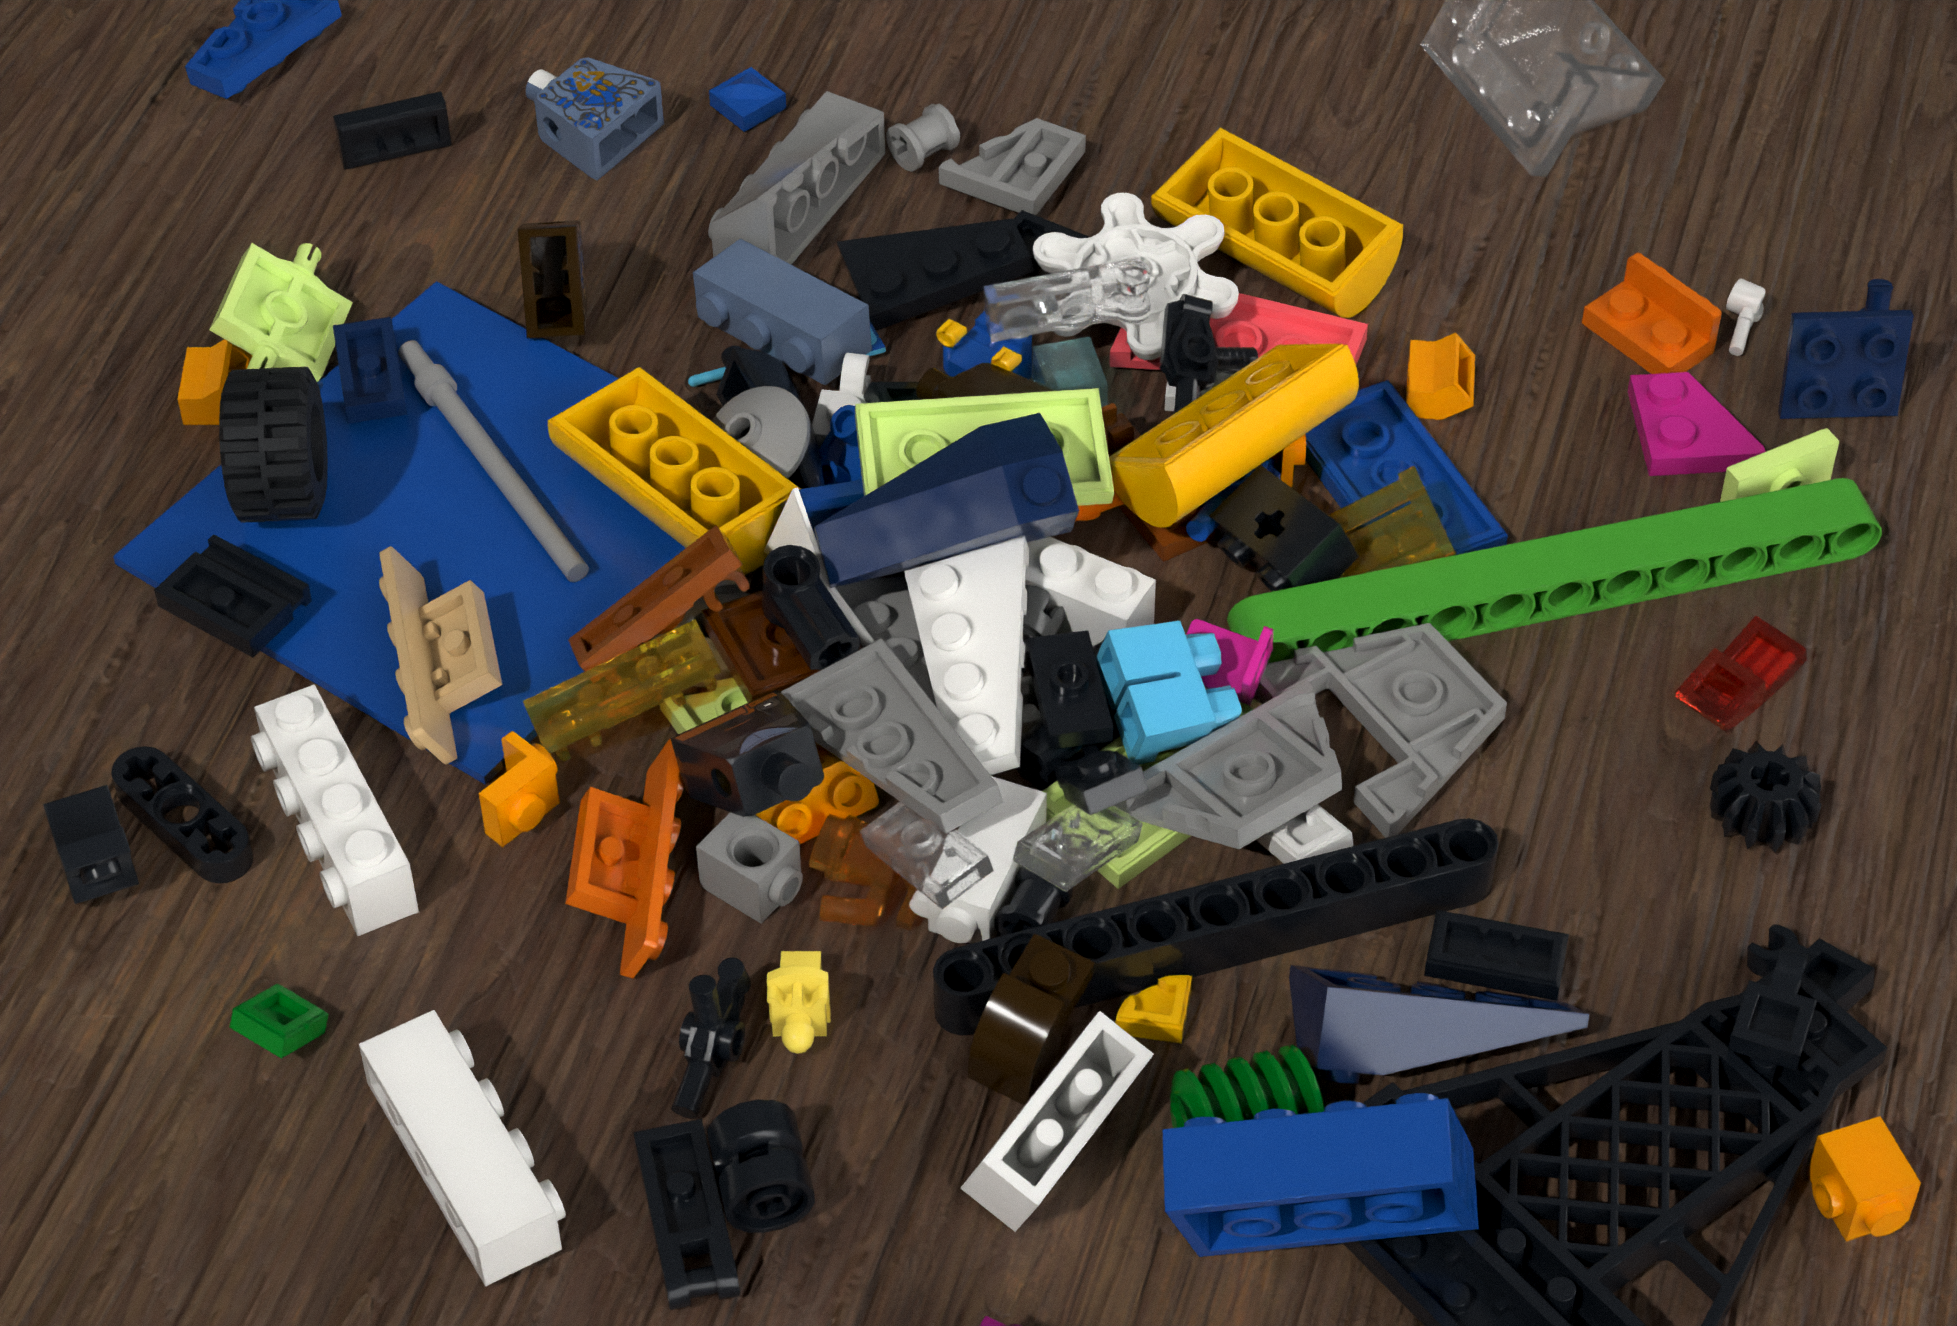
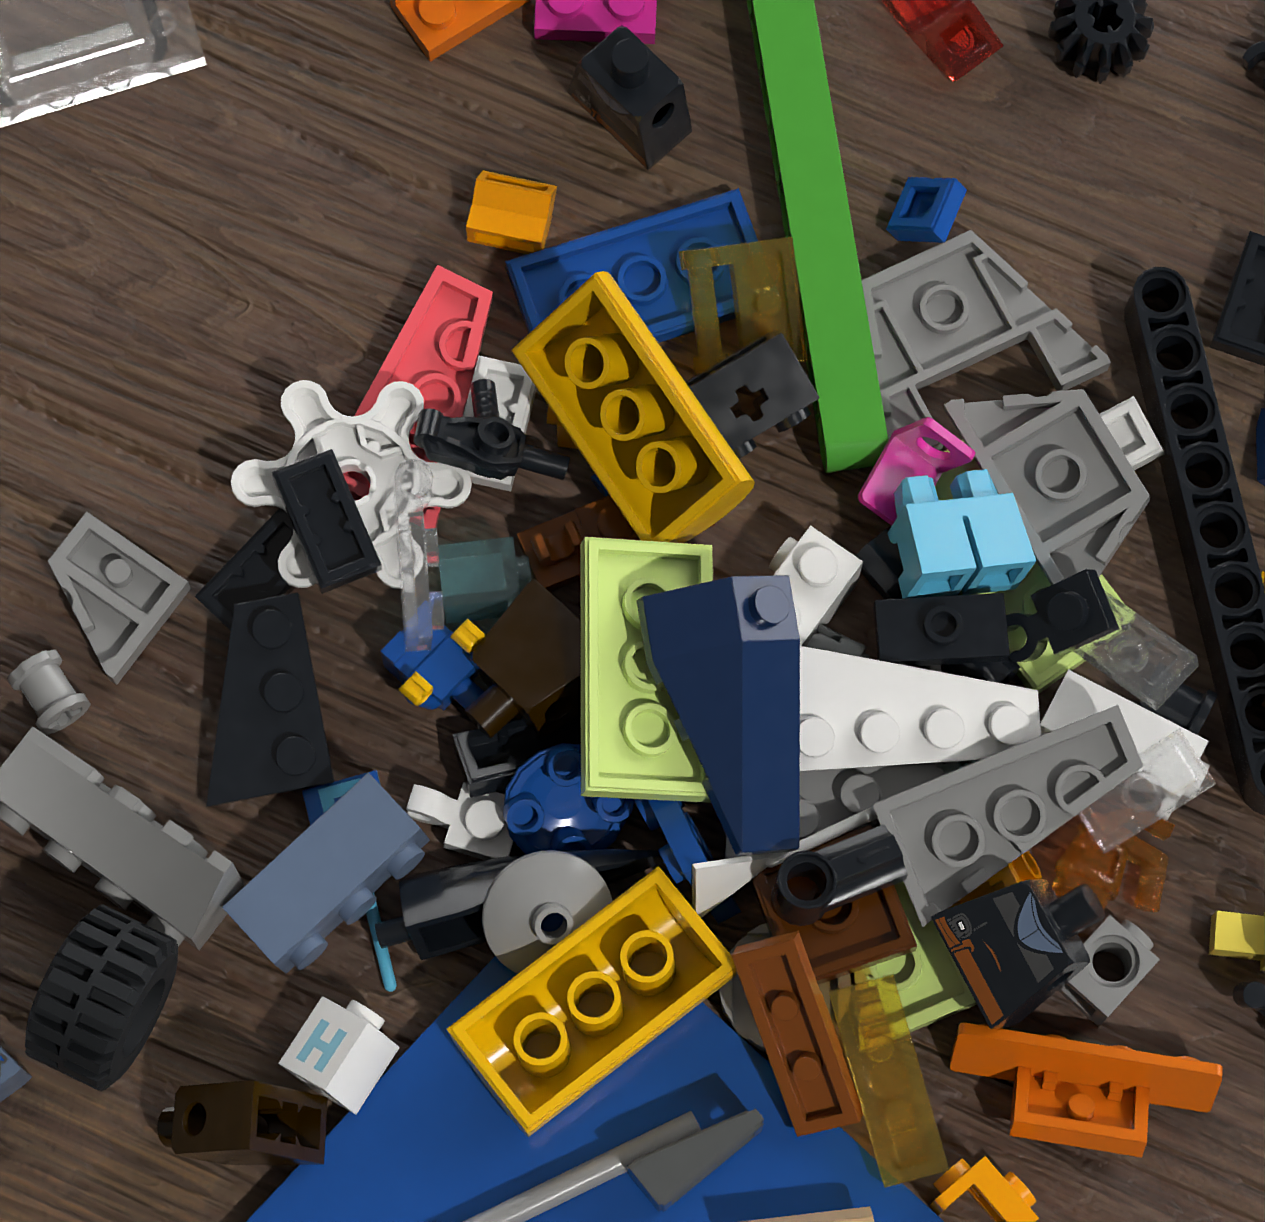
camera: 85 degrees left, 25 degrees up
(538, 561) = (680, 1166): none -> dark grey slope
(621, 333) = (340, 1052): none -> white brick
(652, 168) = (101, 997): none -> black tyre
(1091, 239) = (326, 521): none -> black plate
(1285, 223) = (274, 327): yellow brick -> none
(1522, 673) = (926, 209): none -> blue tile
(1585, 418) = (623, 91): none -> black torso

